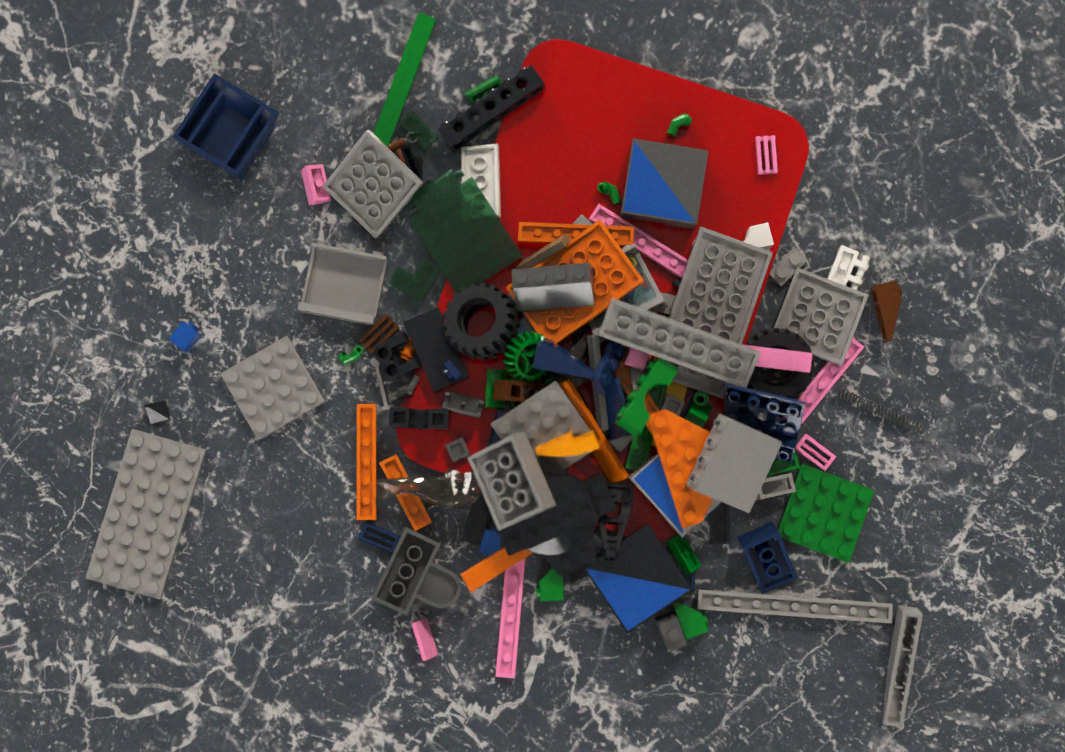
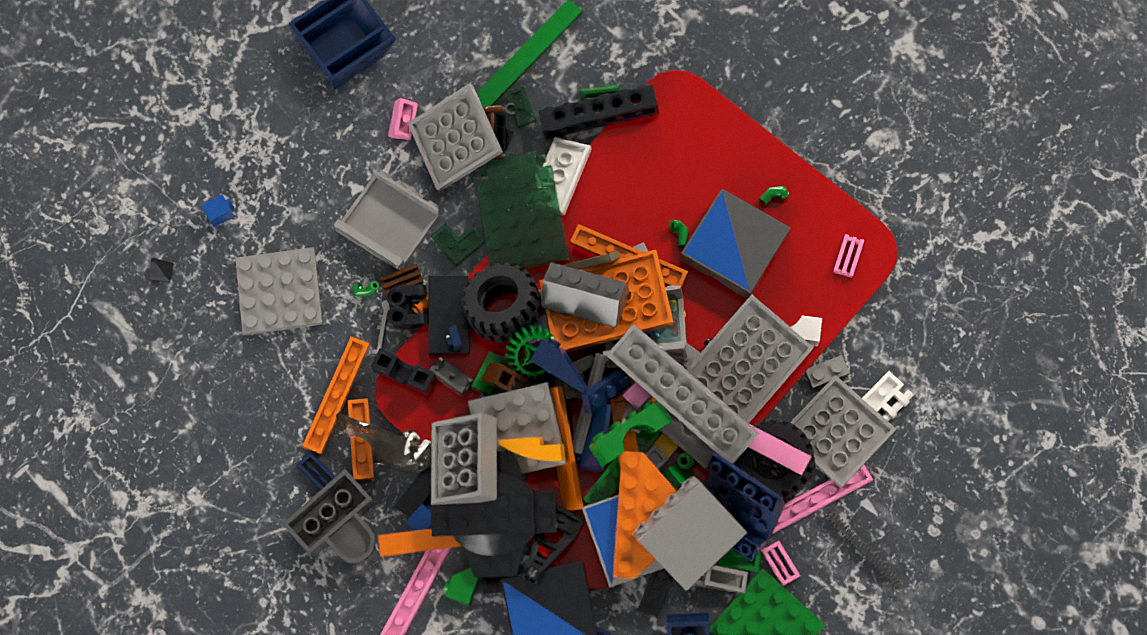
camera: 30 degrees right, 10 degrees down
(146, 514) = (107, 361): light grey plate -> none
(405, 390) = (402, 342): dark grey piece -> none
(424, 639) = (317, 588): bright pink slope -> none
(457, 450) = (426, 417): flat silver tile -> none
(620, 443) = (588, 472): dark grey slope -> none
(644, 243) = (693, 293): bright pink tile -> none
(684, 554) = (607, 609): green plate -> none
(886, 303) = (912, 443): reddish brown slope -> none

